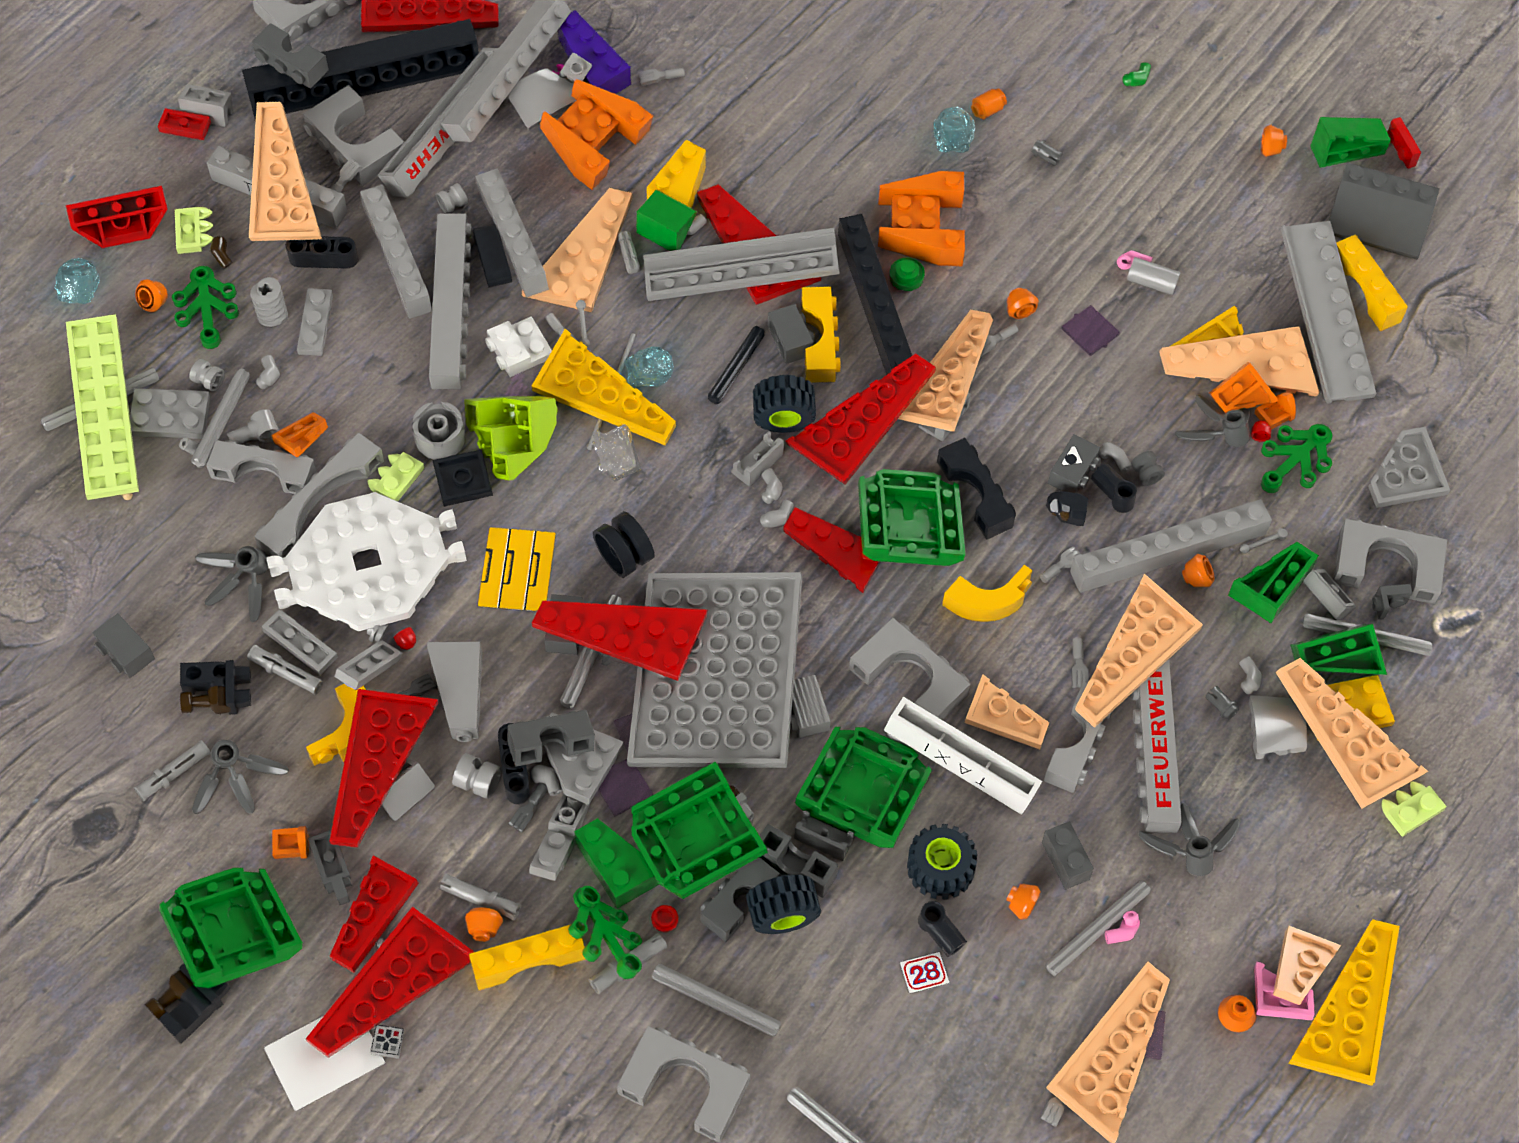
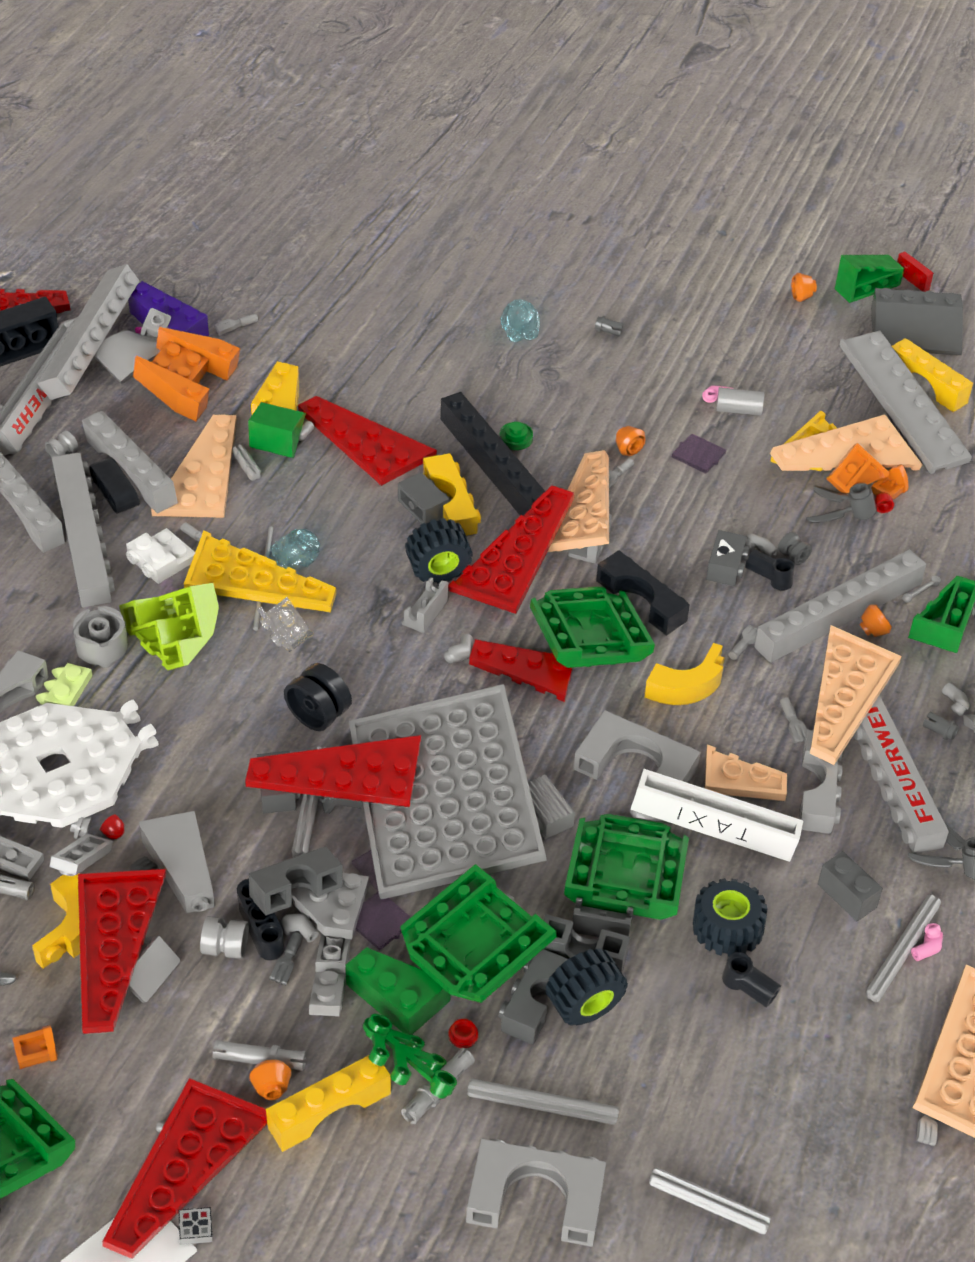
camera: 15 degrees left, 15 degrees down
(331, 865) = (87, 1059): dark grey hinge -> none
(378, 902) = (145, 1093): red wing -> none
(462, 477) = (134, 675): black tile -> none
(516, 569) = (211, 746): yellow sticker -> none
(580, 304) = (213, 510): light grey hinge -> none
(736, 365) = (378, 535): black axle -> none
(741, 264) = (358, 450): light grey plate -> none
(773, 488) = (449, 626): light grey arm -> none
(916, 217) = (509, 389): orange wedge -> none
(924, 972) = (747, 1028): sticker -> none
(988, 103) = (544, 297): orange brick -> none
(1023, 899) = (822, 935): orange cone -> none
(1068, 507) = (735, 591): black rock -> none
(1139, 77) = (667, 261): green arm -> none
(1297, 454) = (934, 499): green plant -> none

